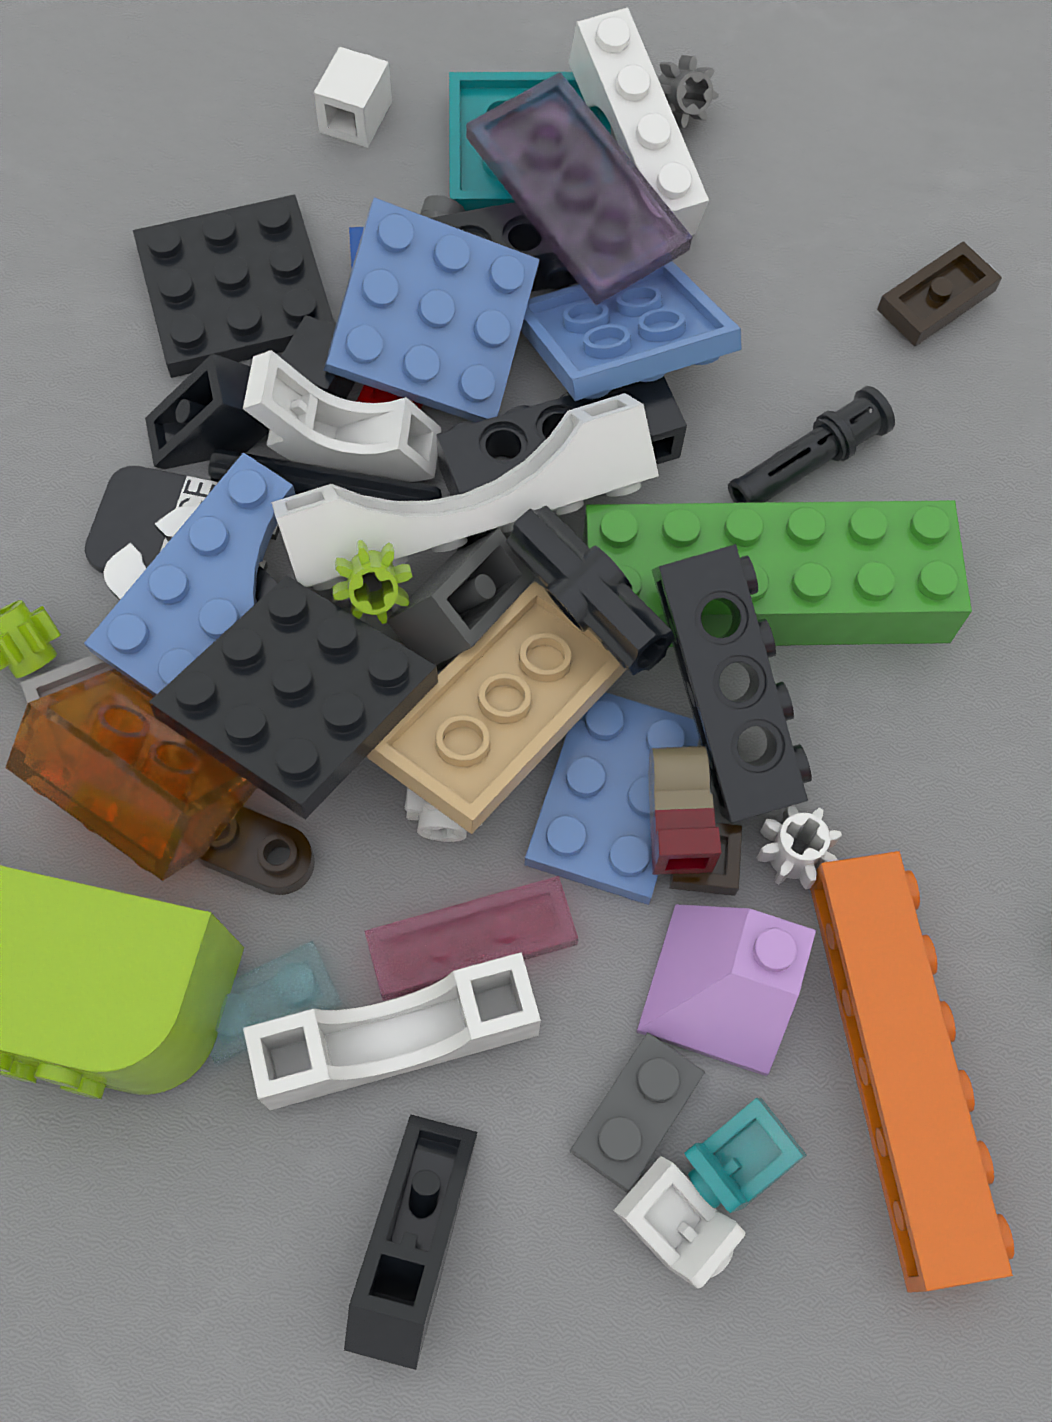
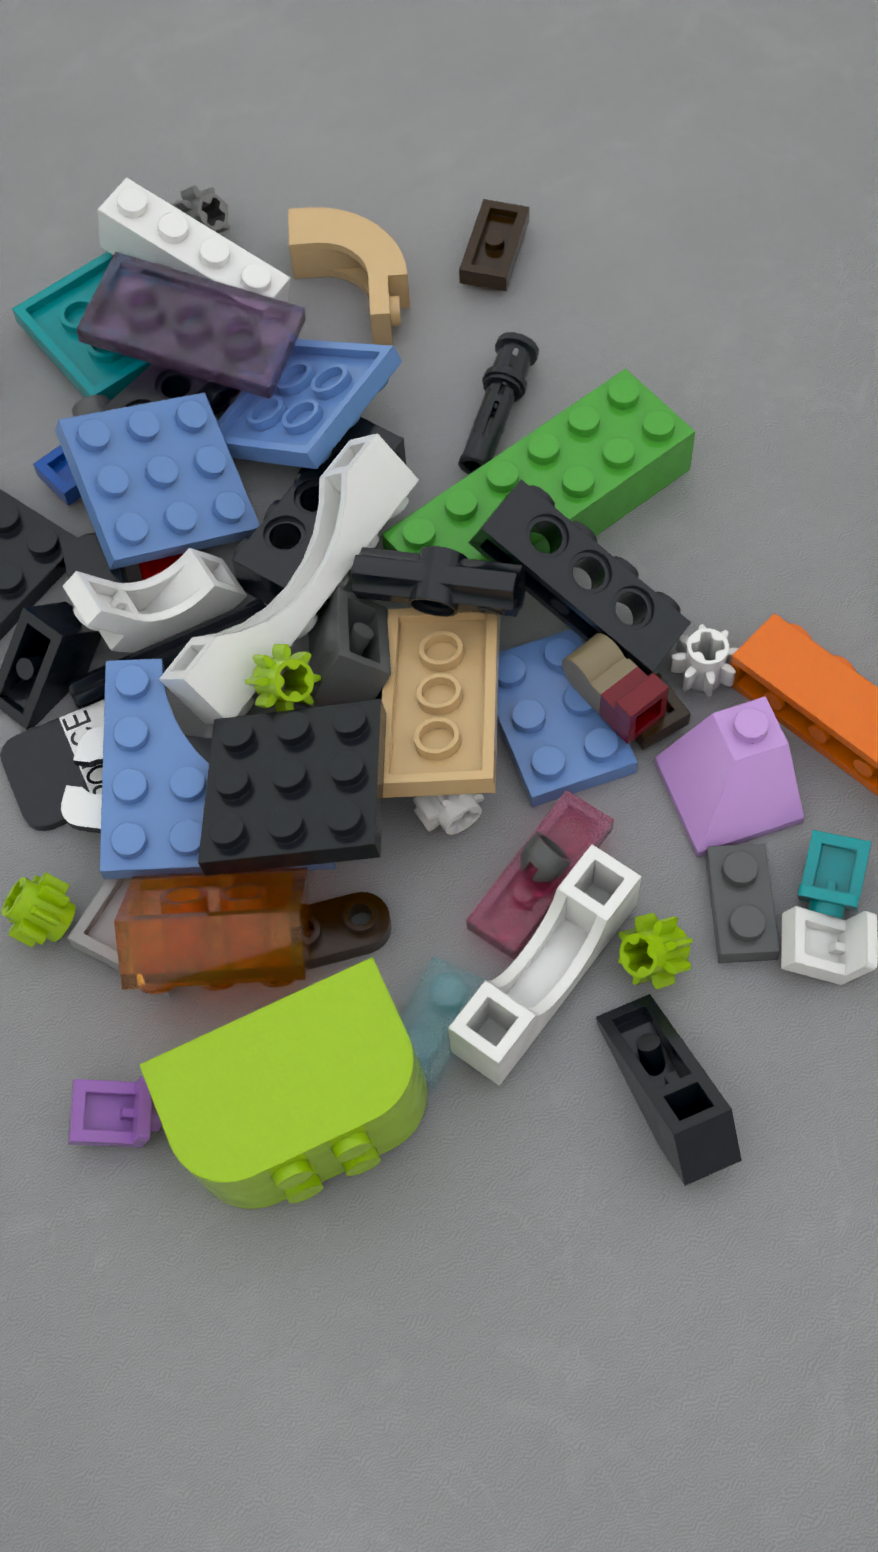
camera: 30 degrees left, 5 degrees down
(477, 928) = (545, 856): none -> dark grey hinge
(508, 1097) = (654, 950): none -> lime gear
(799, 210) = (356, 250): none -> tan arch

